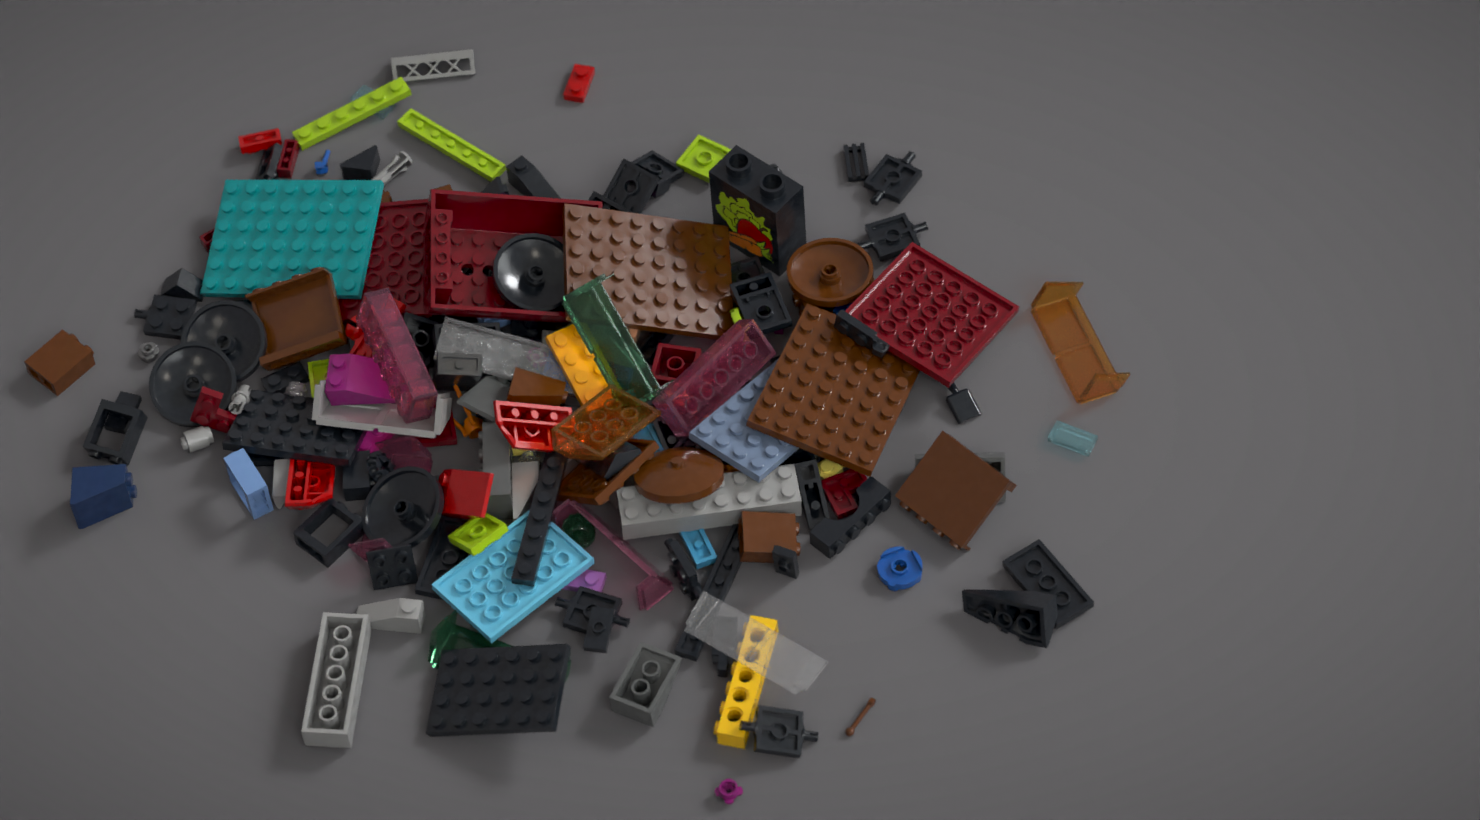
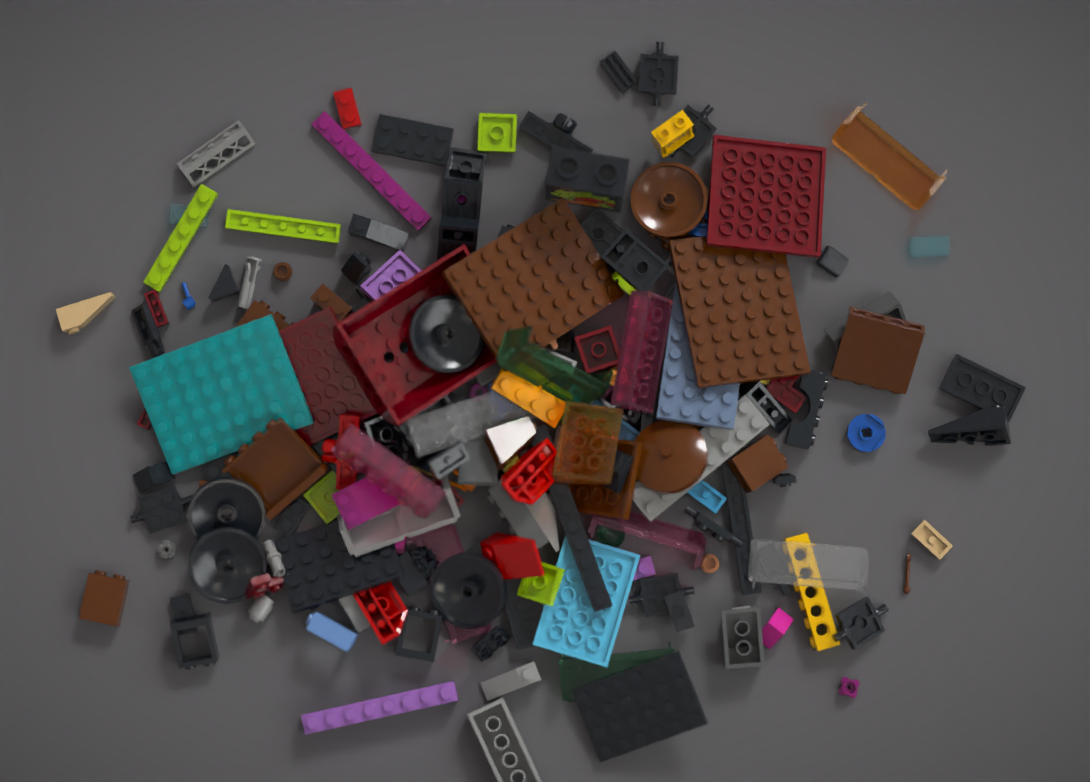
camera: 35 degrees left, 30 degrees up
(100, 493) = (221, 702): dark blue slope -> none
(219, 130) = (81, 313): none -> tan slope
(245, 575) = (379, 707): none -> medium lavender brick
(259, 141) = (123, 305): red plate -> none
(296, 389) = (310, 523): clear plate -> none
(424, 180) = (282, 271): none -> reddish brown plate
(564, 137) = (372, 171): none -> magenta plate
(620, 131) = (412, 140): none -> black plate
(660, 609) = (709, 563): none -> nougat plate
(687, 697) = (775, 627): none -> dark pink slope
(860, 333) = (732, 251): black hinge -> none
(869, 216) = (672, 134): none -> yellow window
(905, 695) = (931, 539): none -> tan plate

